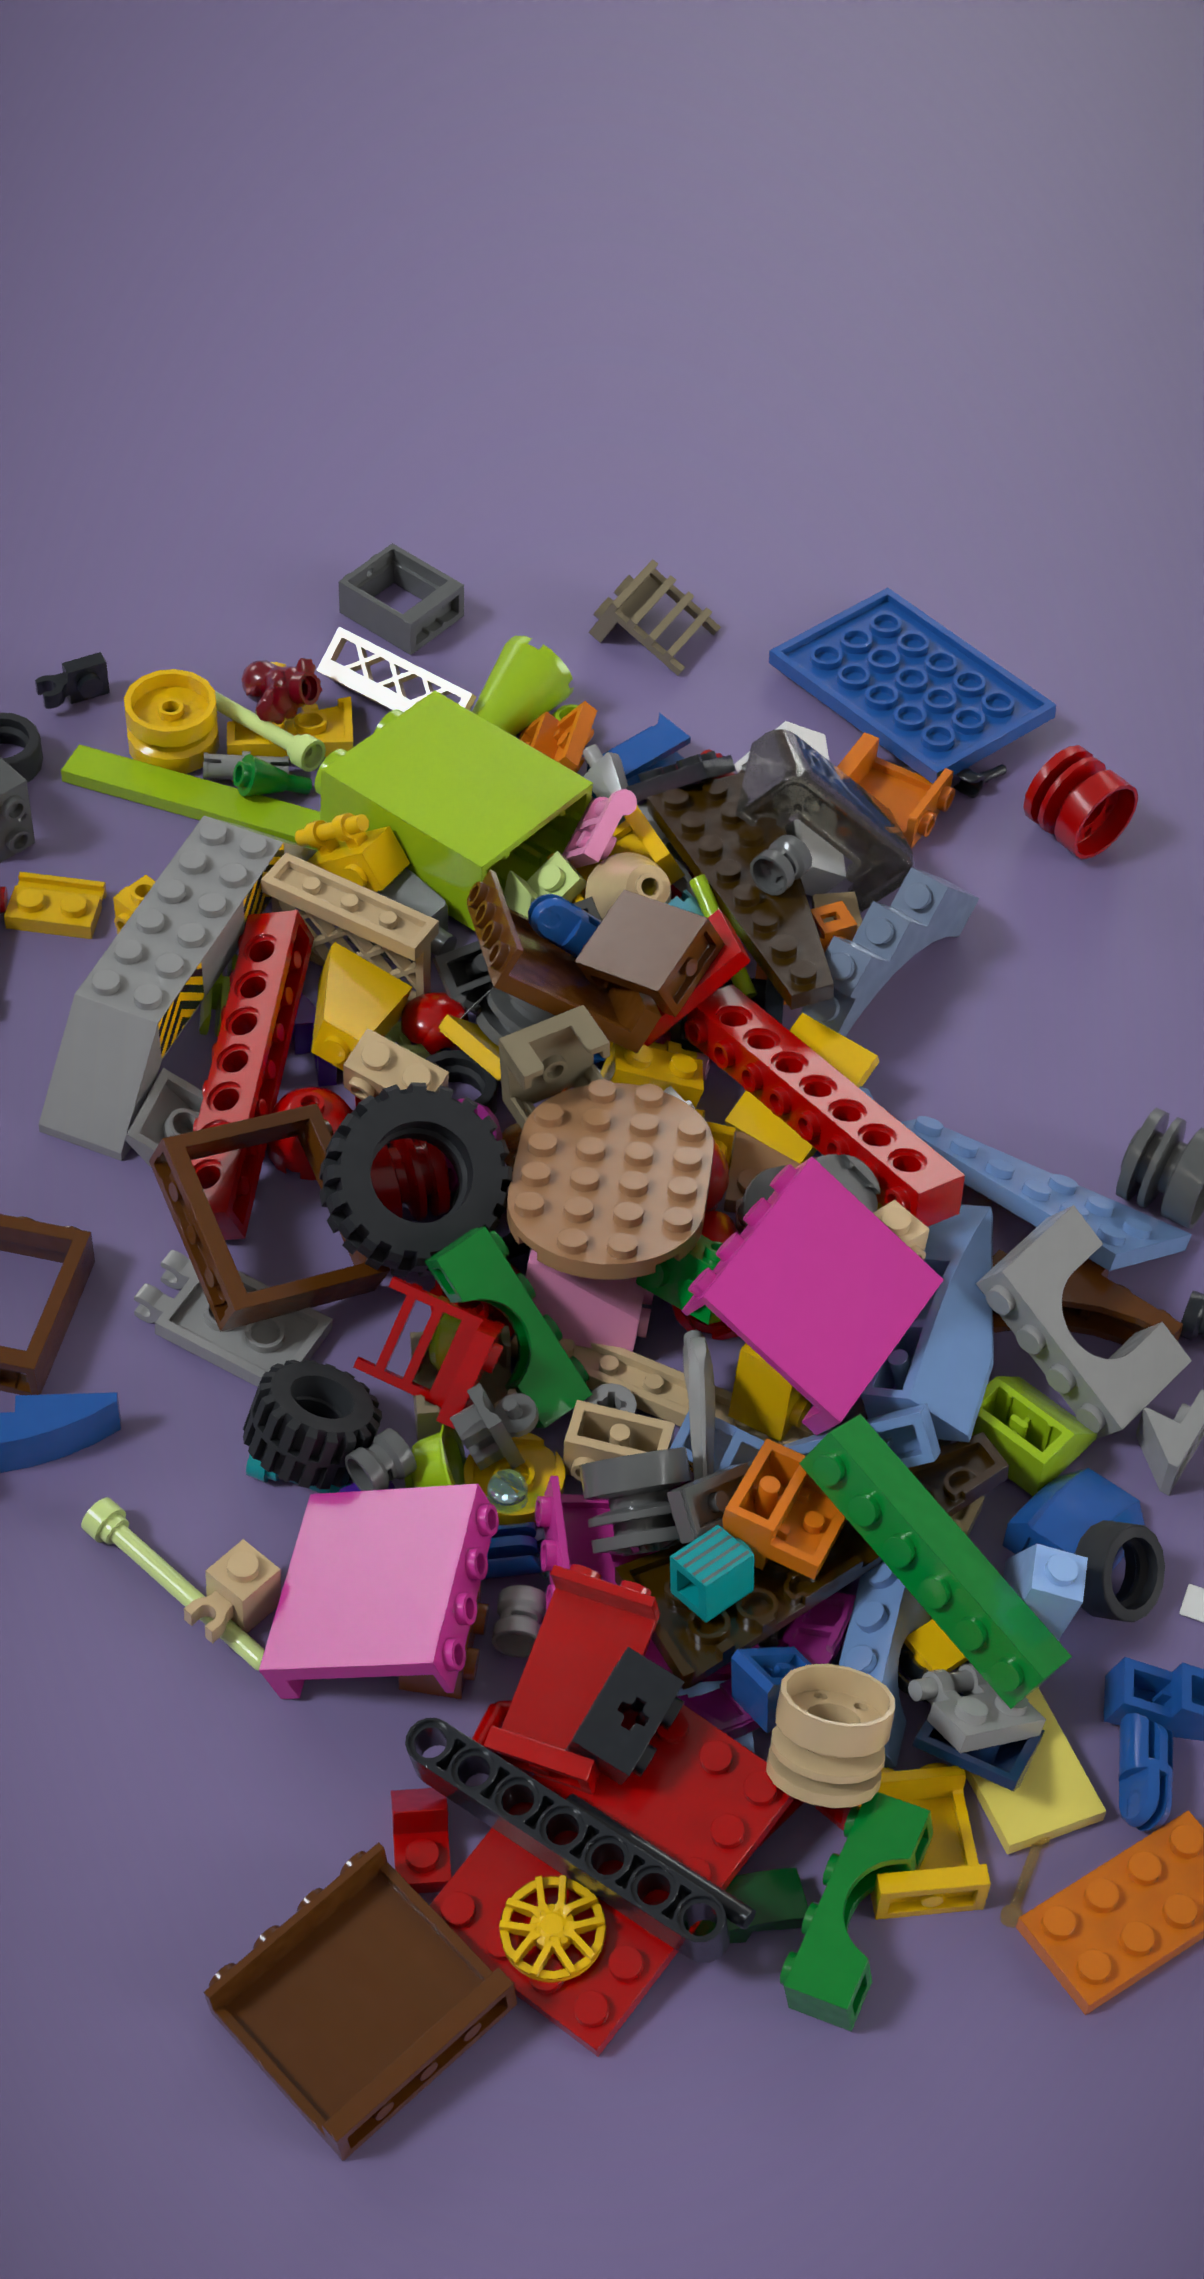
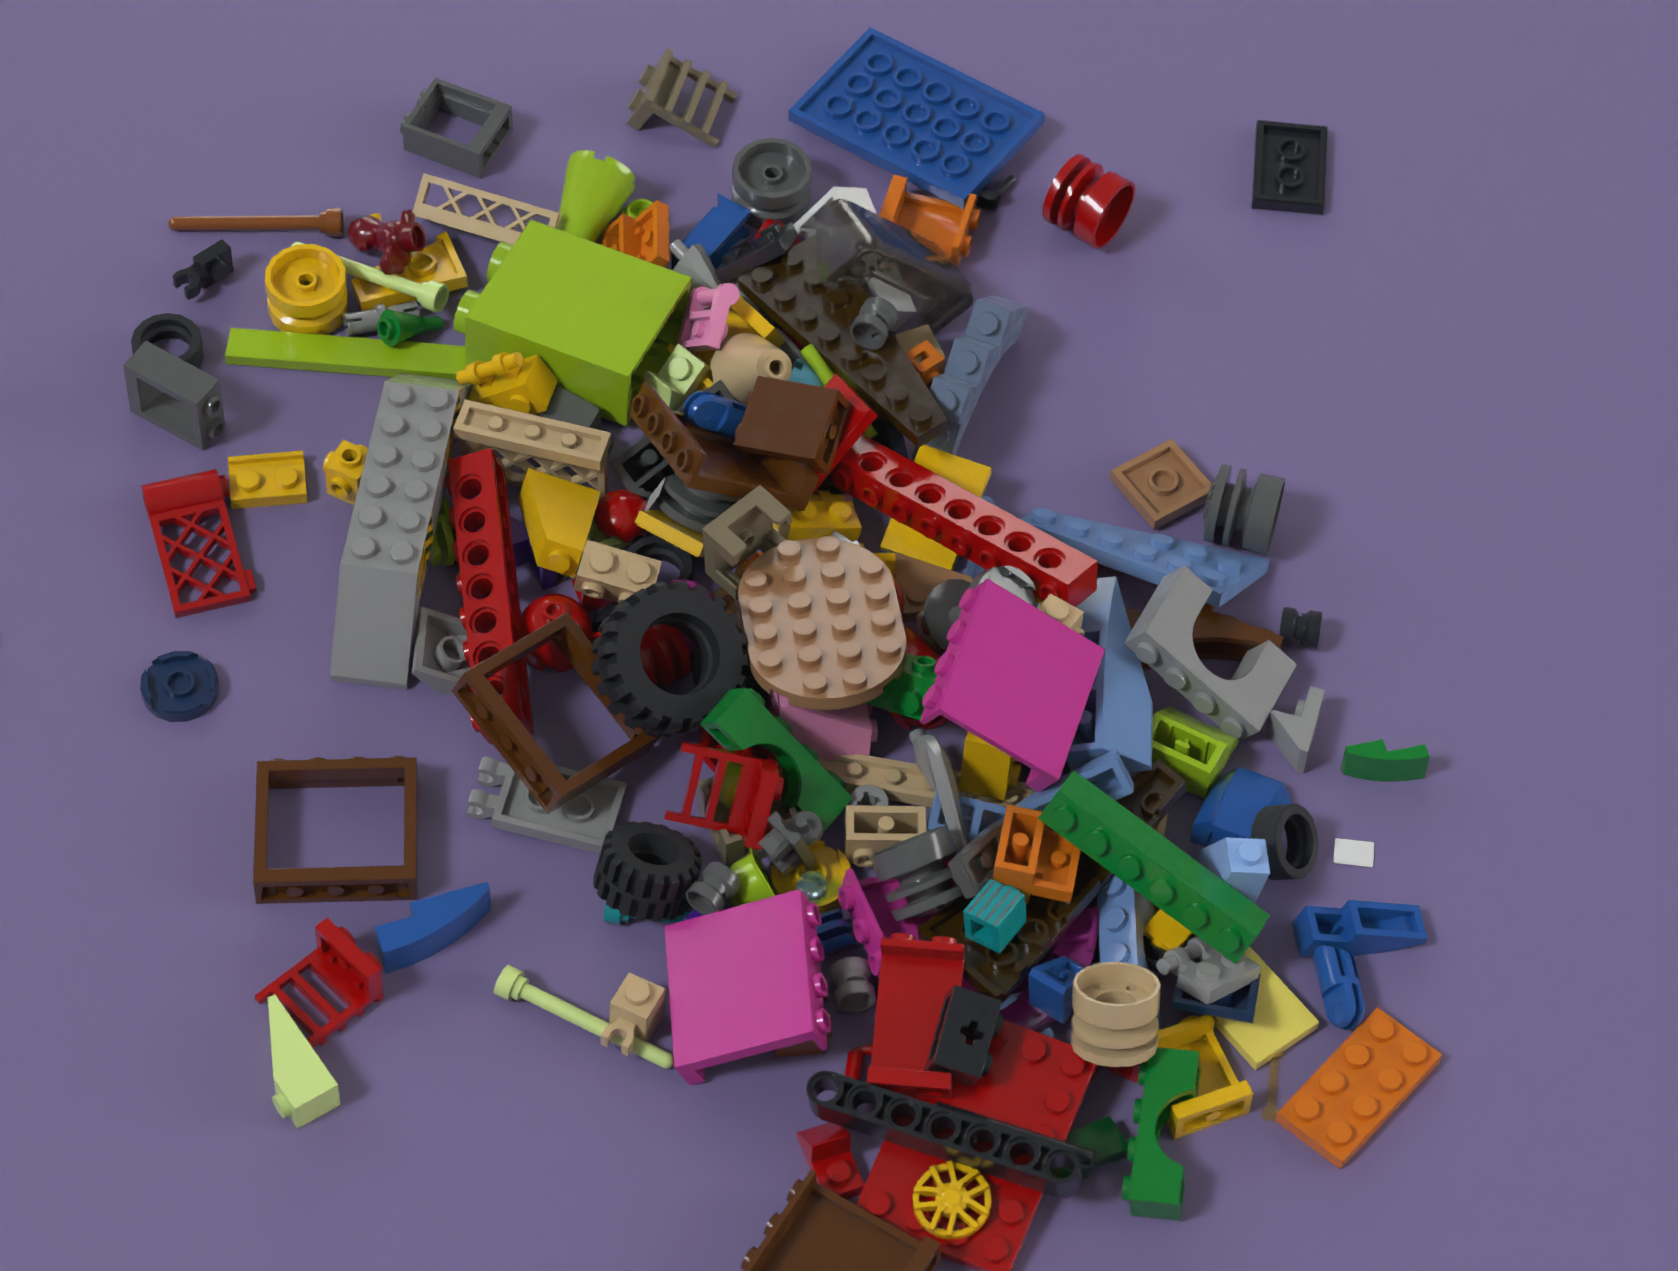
camera: 15 degrees left, 5 degrees up
(227, 662) = (327, 222): none -> dark orange piece
(724, 710) = (772, 181): none -> dark grey wheel
(1081, 1121) = (1161, 484): none -> medium nougat plate

